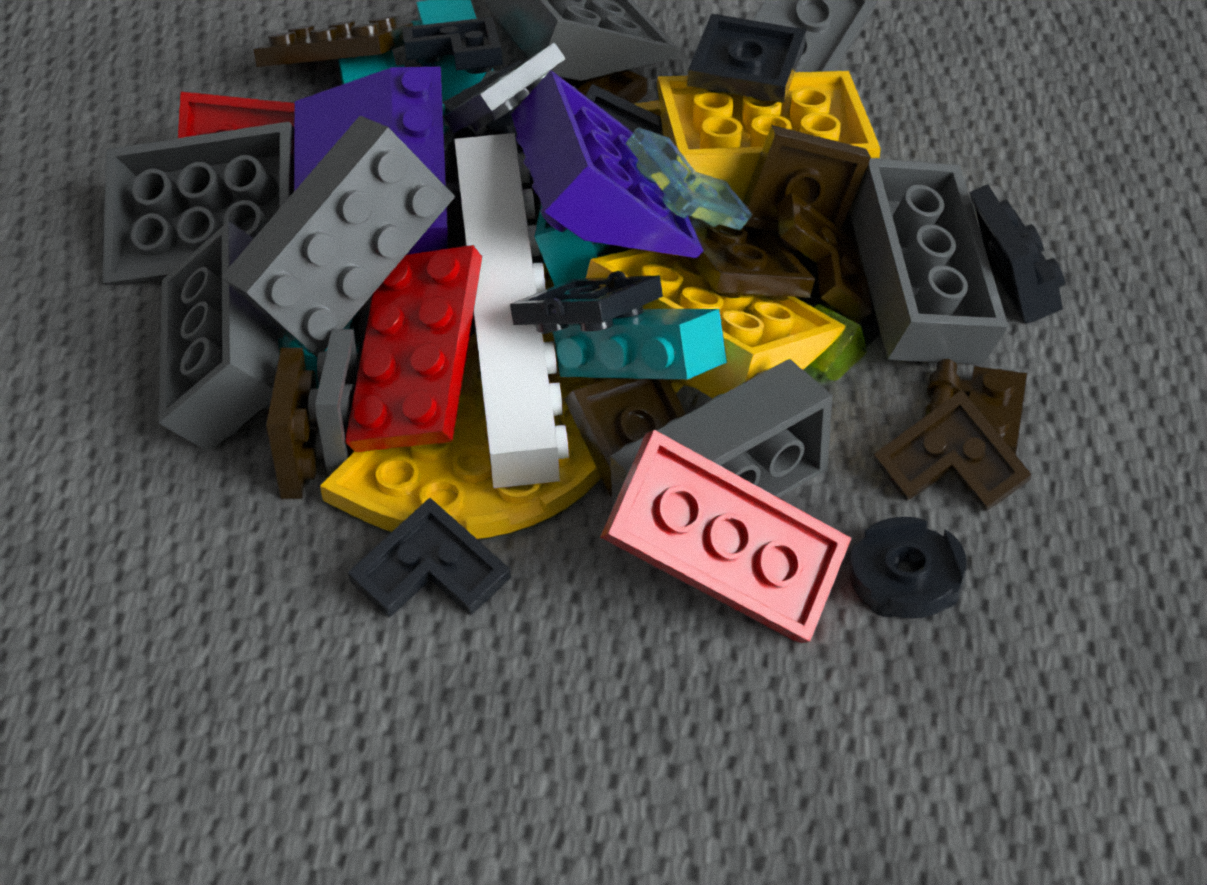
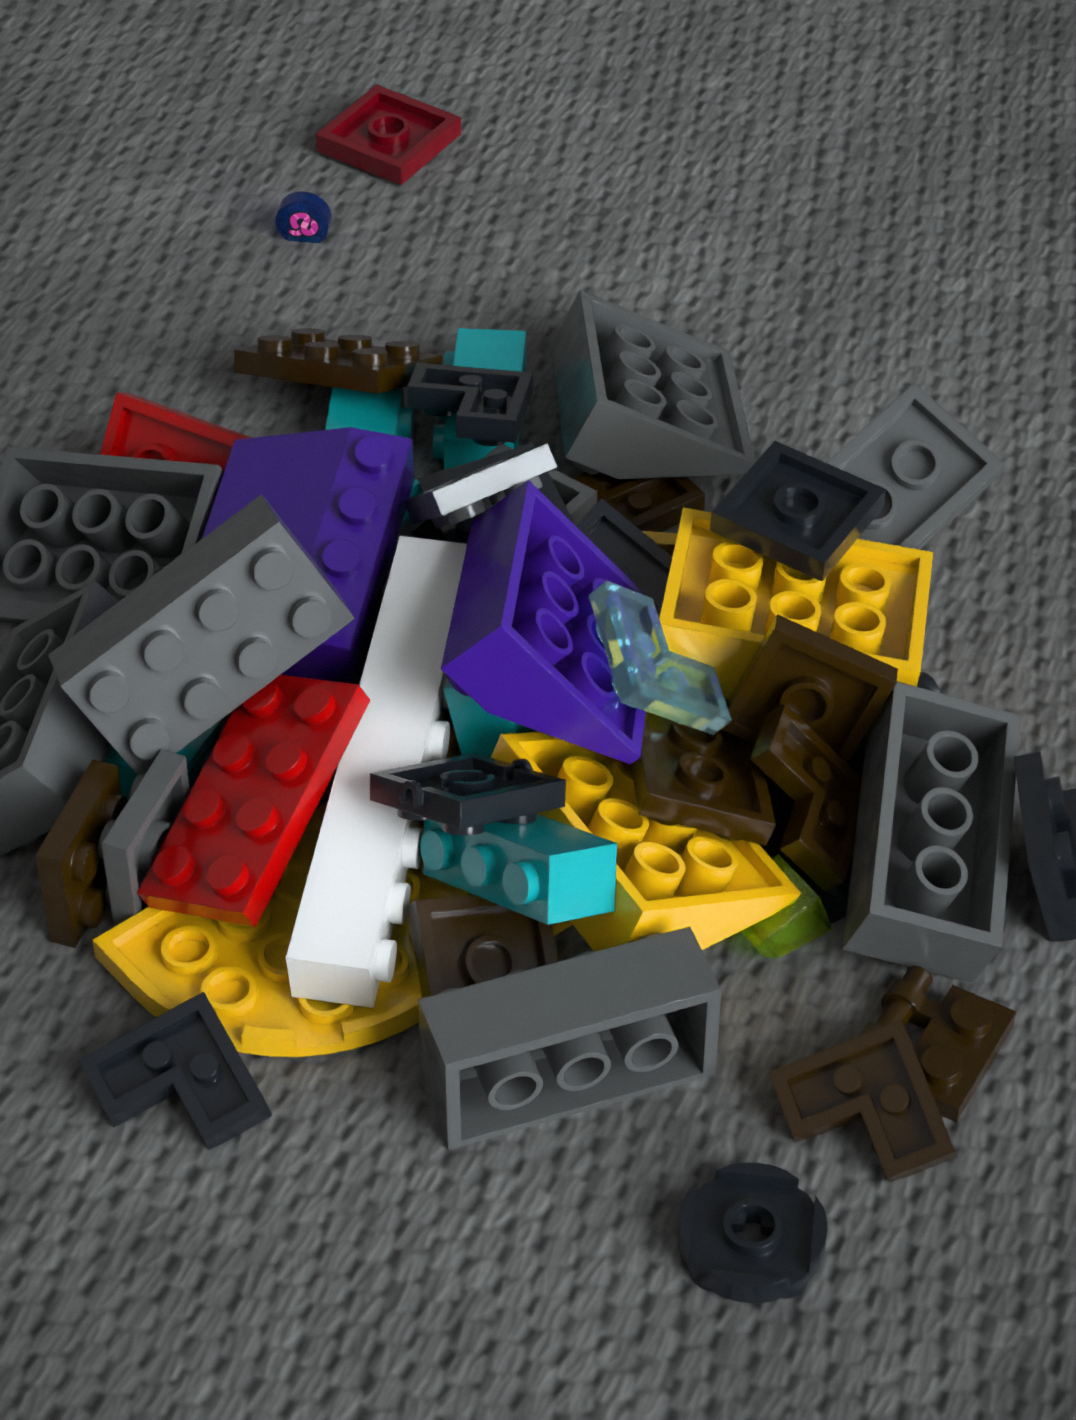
camera: 15 degrees right, 0 degrees up
(726, 537) = (522, 1141): plate -> none

